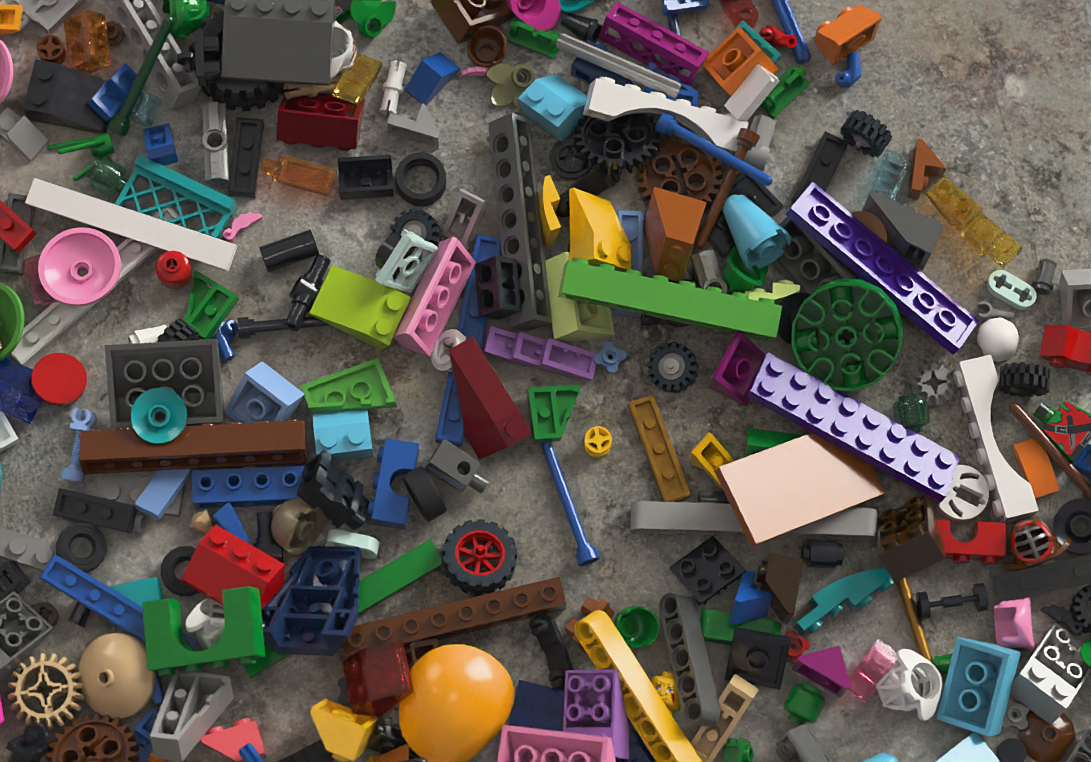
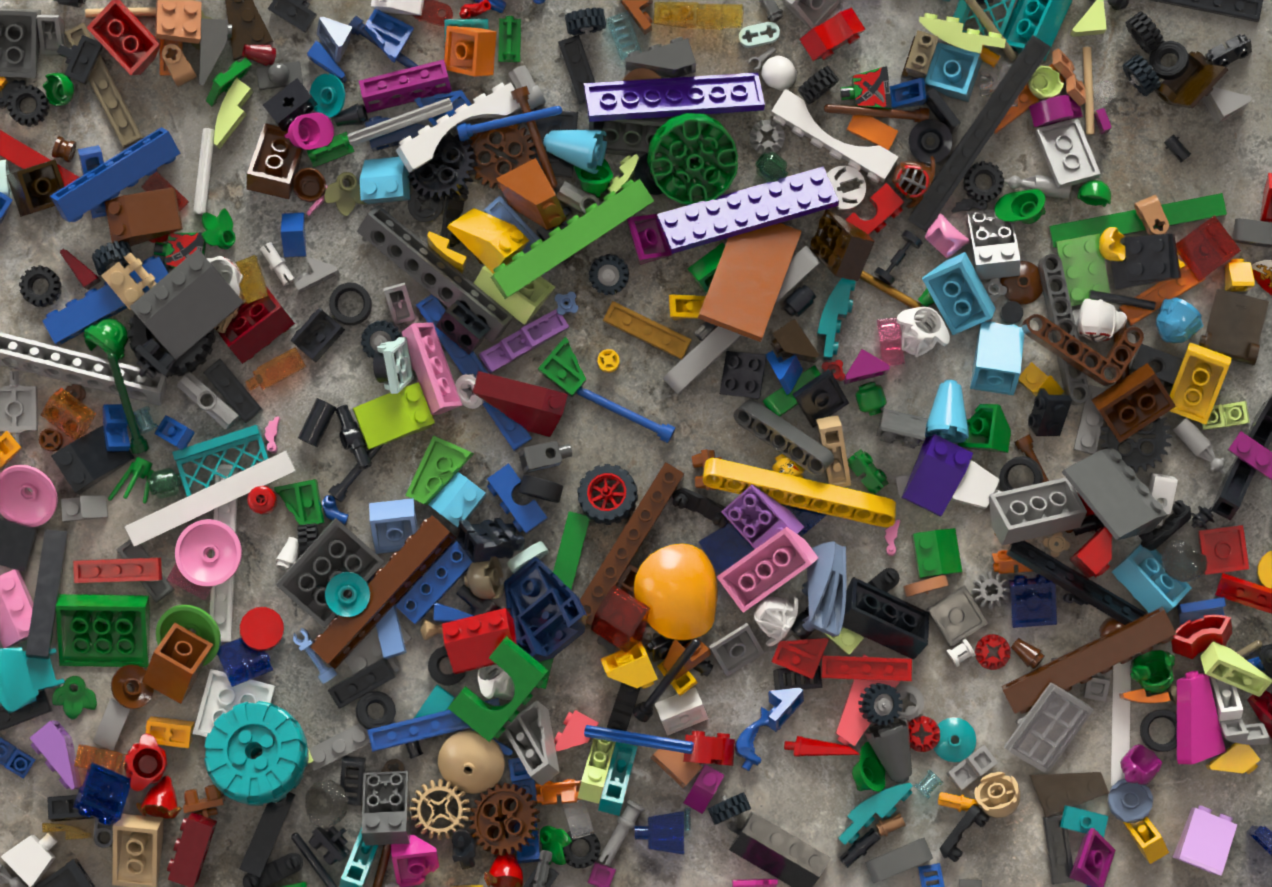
camera: 35 degrees left, 10 degrees up
(637, 626) = (735, 446): green hair -> none
(751, 93) = (495, 63): white panel -> none

